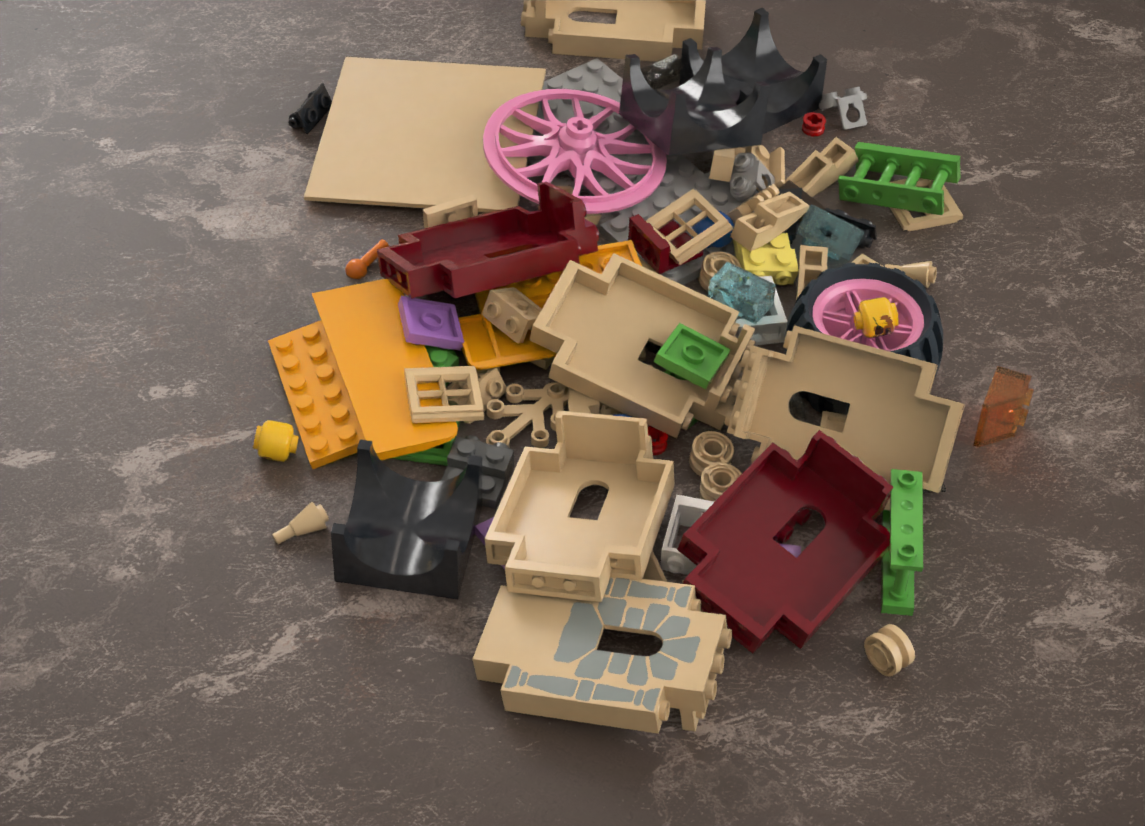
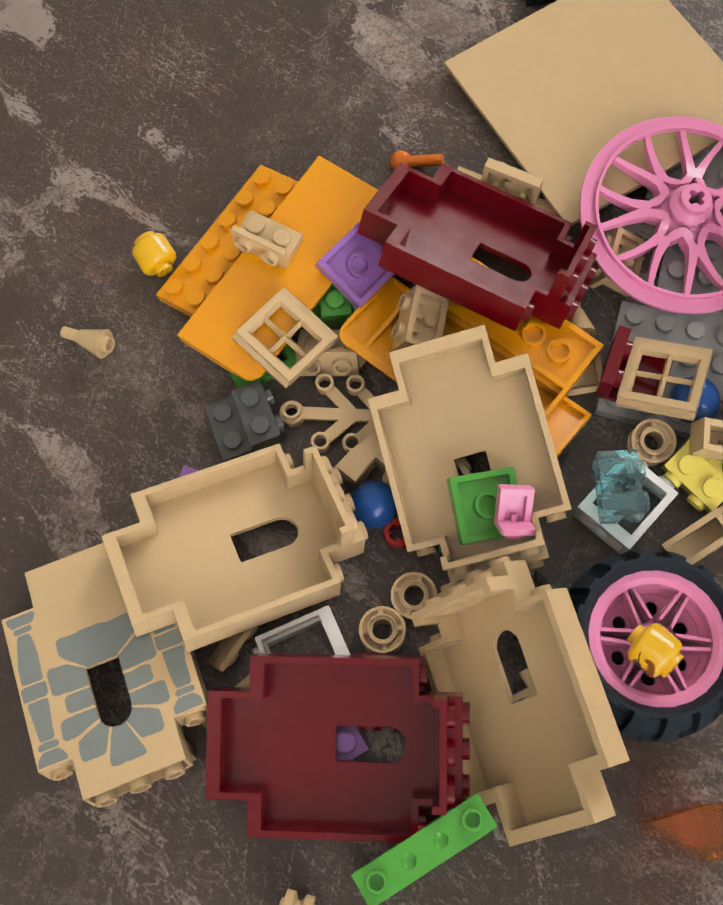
camera: 60 degrees right, 25 degrees up
(352, 356) = (266, 239): none -> tan bracket
(407, 530) = (132, 421): black piece -> none
(713, 337) = (514, 511): none -> bright pink bracket

